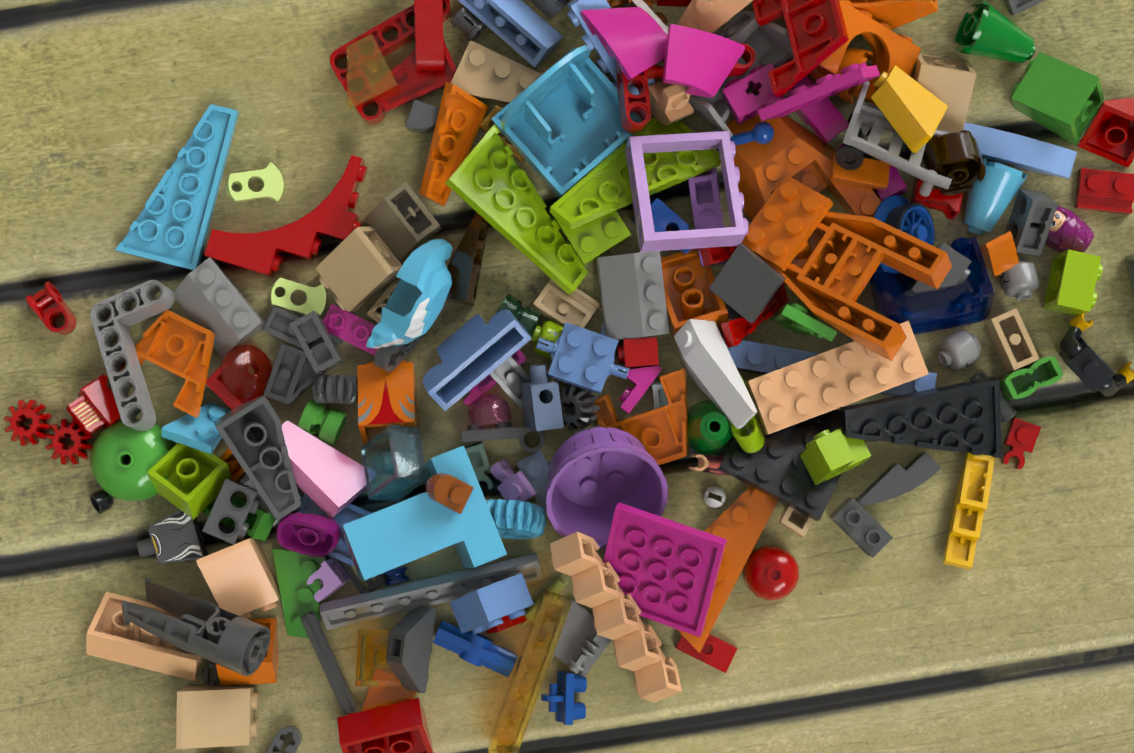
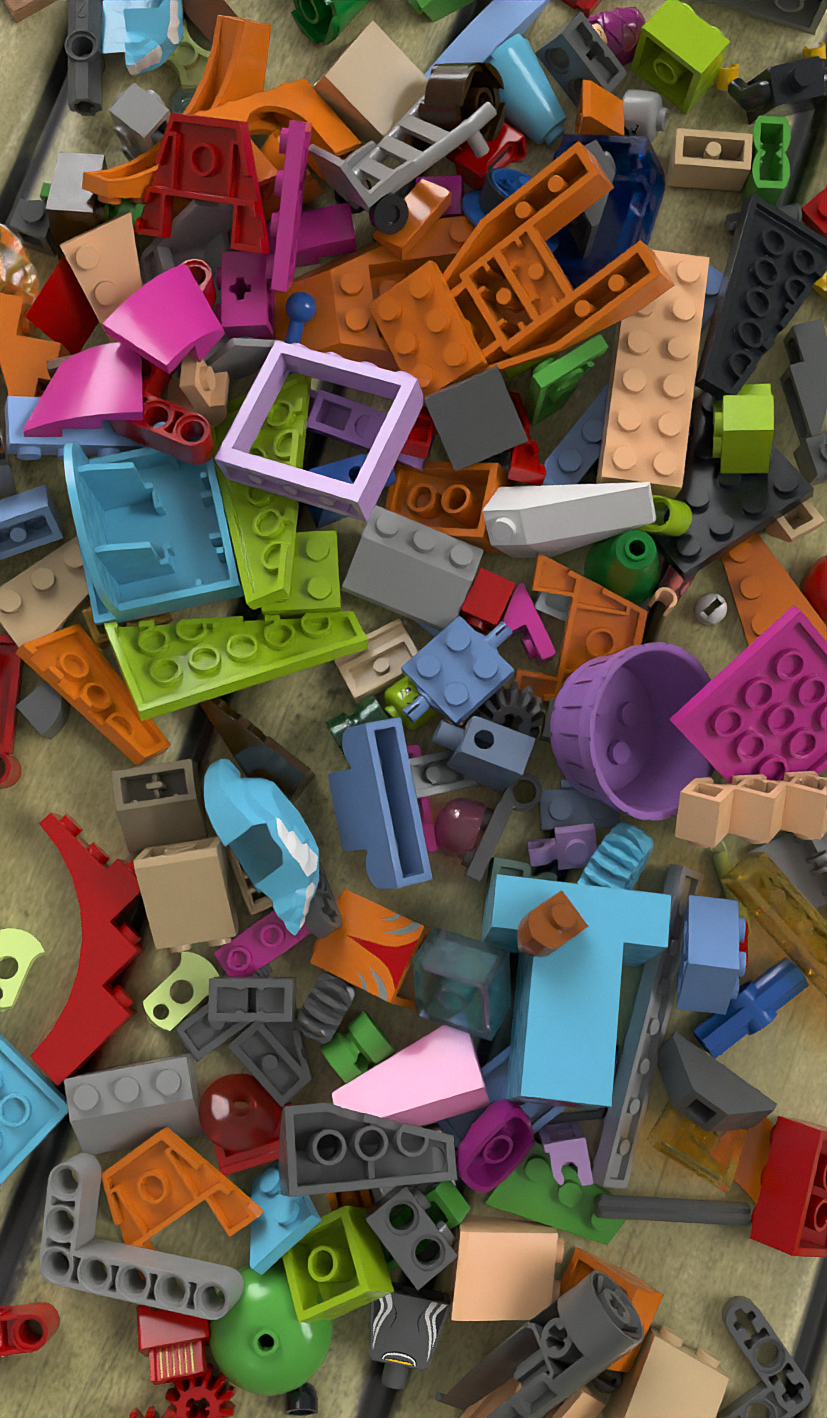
camera: 60 degrees left, 5 degrees down
(908, 107) = (369, 114): yellow slope -> none
(959, 350) = (688, 227): light grey head -> none

